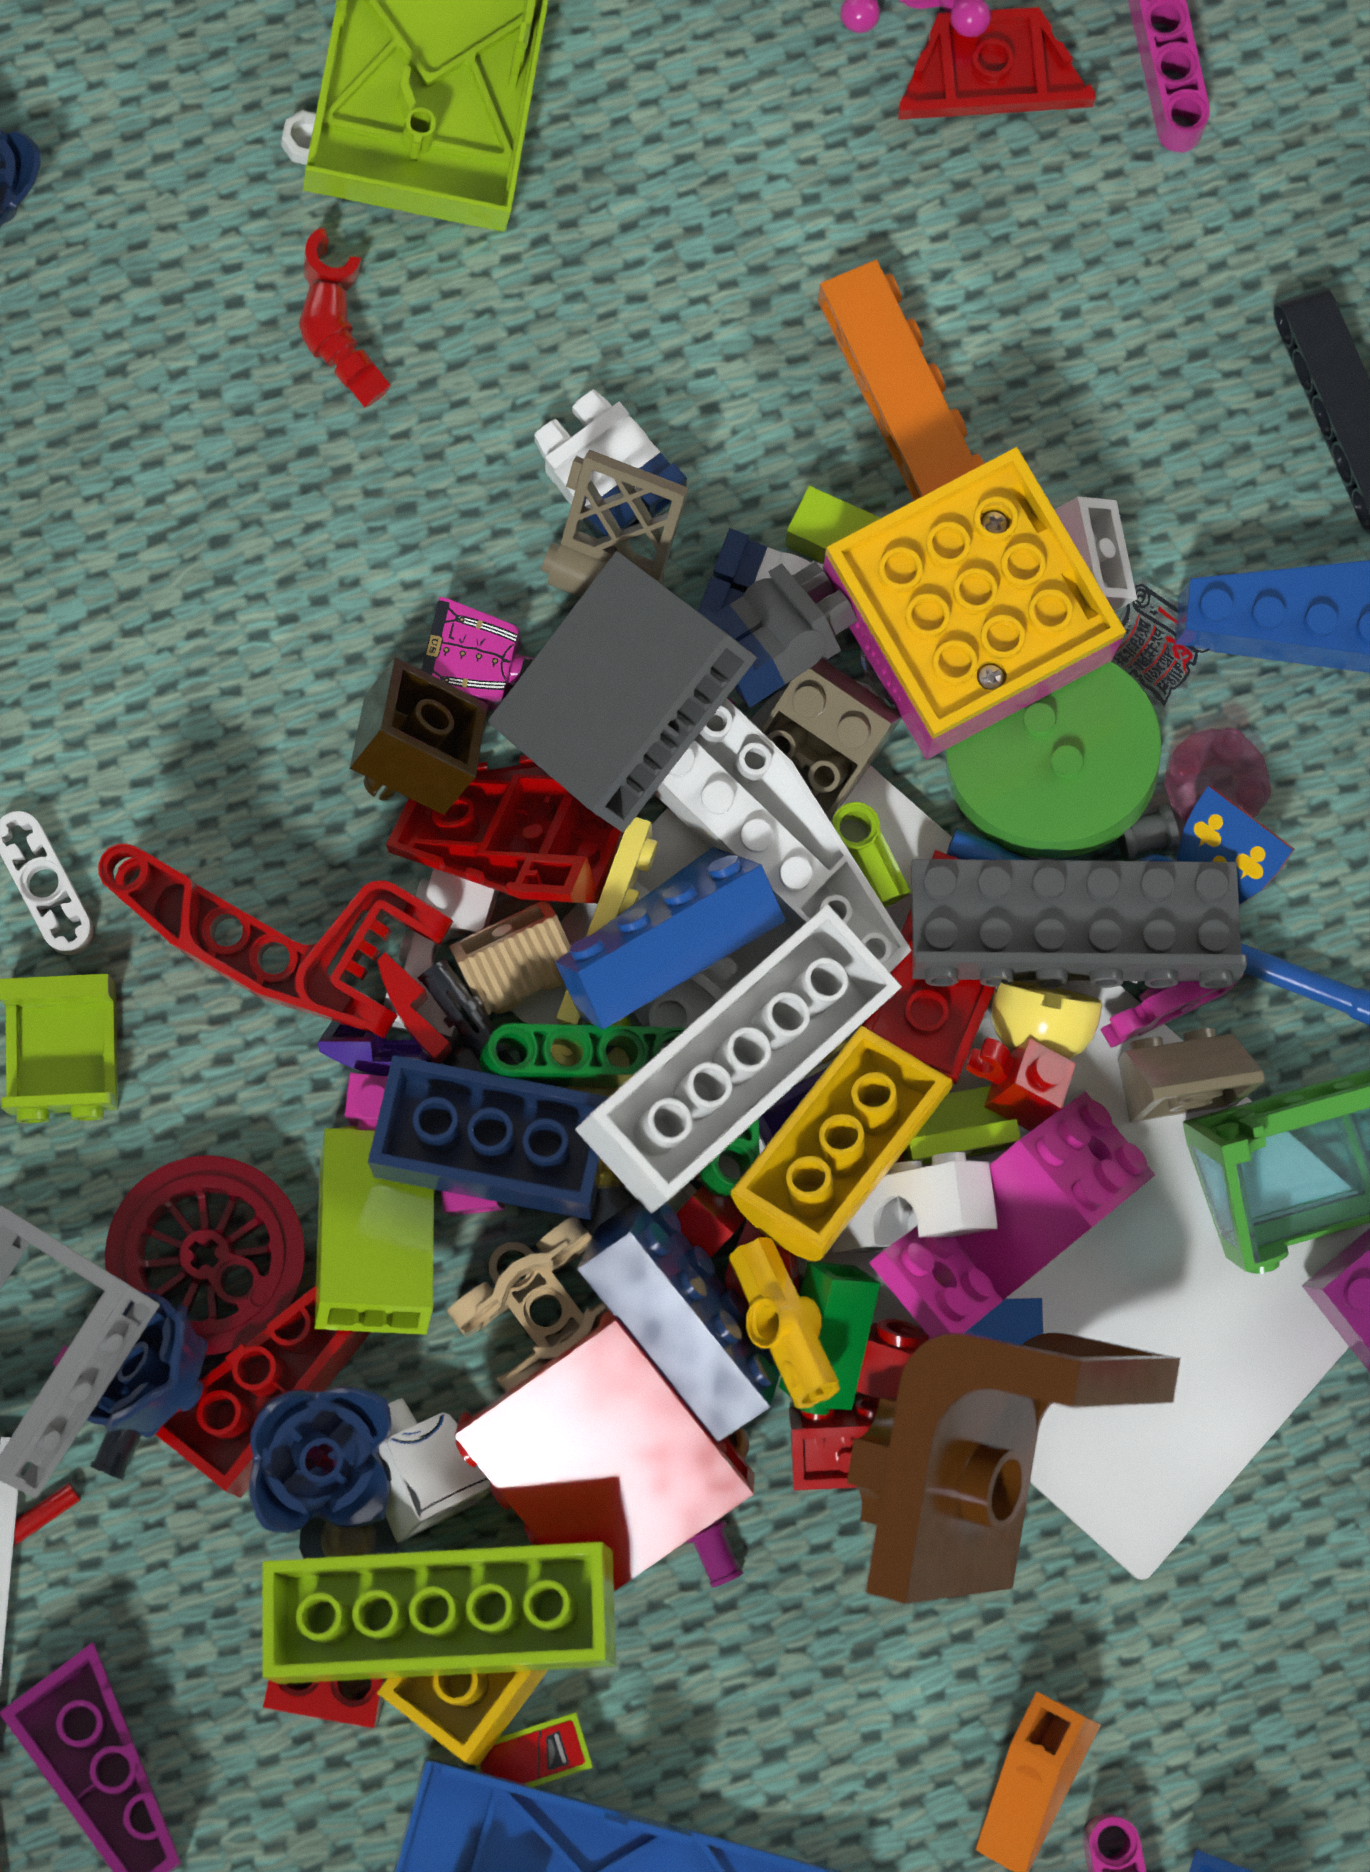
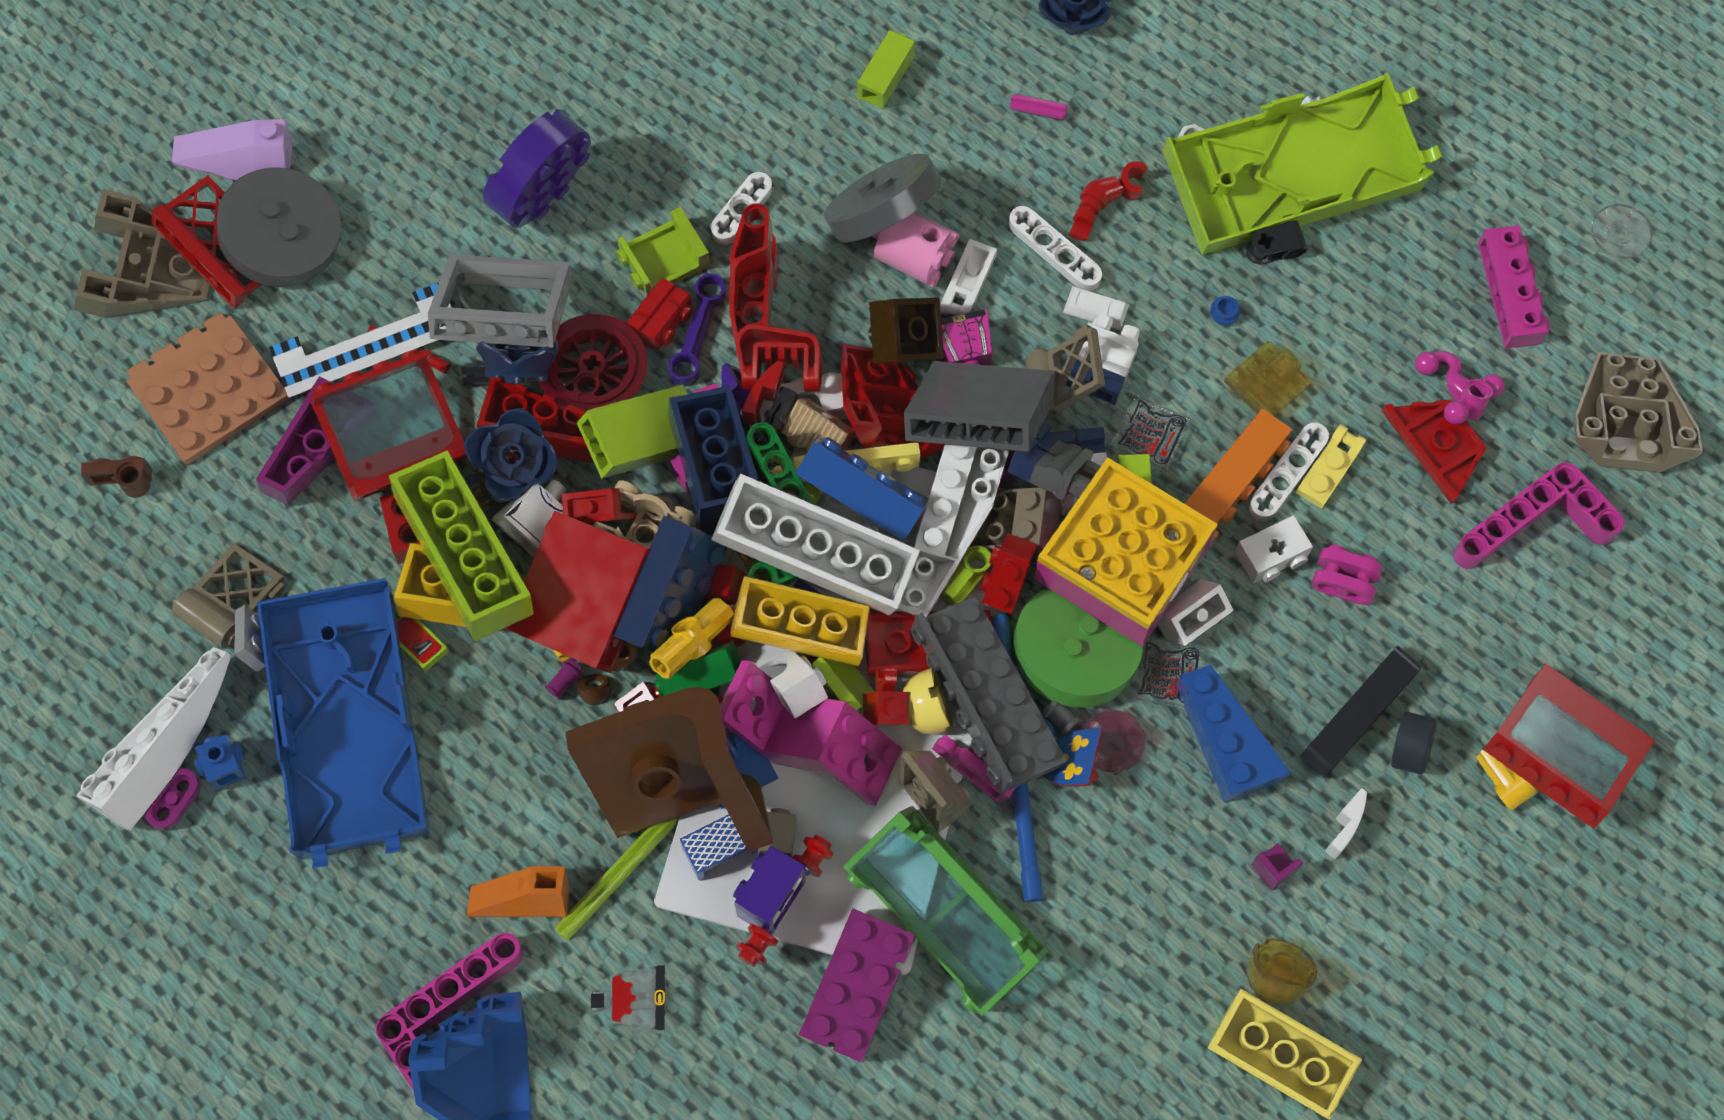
camera: 65 degrees right, 10 degrees down
(118, 334) = (1038, 106): none -> dark pink axle
(148, 1635) = (386, 421): none -> clear light blue panel
(169, 1104) = (661, 314): none -> red brick
(174, 653) = (882, 198): none -> dark grey brick
(222, 1057) = (697, 329): none -> dark purple piece
(270, 647) = (917, 247): none -> bright pink cylinder
(363, 596) = (968, 278): none -> white plate
(376, 432) = (1057, 246): none -> white beam
(467, 1367) = (595, 506): none -> red panel
(508, 434) = (1089, 305): none -> white tile
(553, 110) = (1277, 243): none -> black piece
(620, 248) = (1225, 310): none -> blue plate
(761, 466) = (1150, 431): none -> clear tile
(762, 1518) = (594, 695): none -> reddish brown piece
(768, 249) = (1268, 379): none -> clear yellow plate
(906, 791) = (1009, 573): none -> red brick
(934, 300) = (1288, 471): none -> white beam
(949, 239) = (1330, 467): none -> light yellow plate
(1032, 418) = (1283, 537): none -> white brick
(1072, 1628) = (613, 878): none -> lime axle
(1109, 1451) = (712, 845): none -> blue panel
(1133, 283) = (1347, 575): none -> dark pink brick
(1140, 1330) = (782, 829): none -> dark tan brick
(1233, 1397) = (771, 892): none -> dark purple brick
(1281, 1679) = (636, 1000): none -> torso

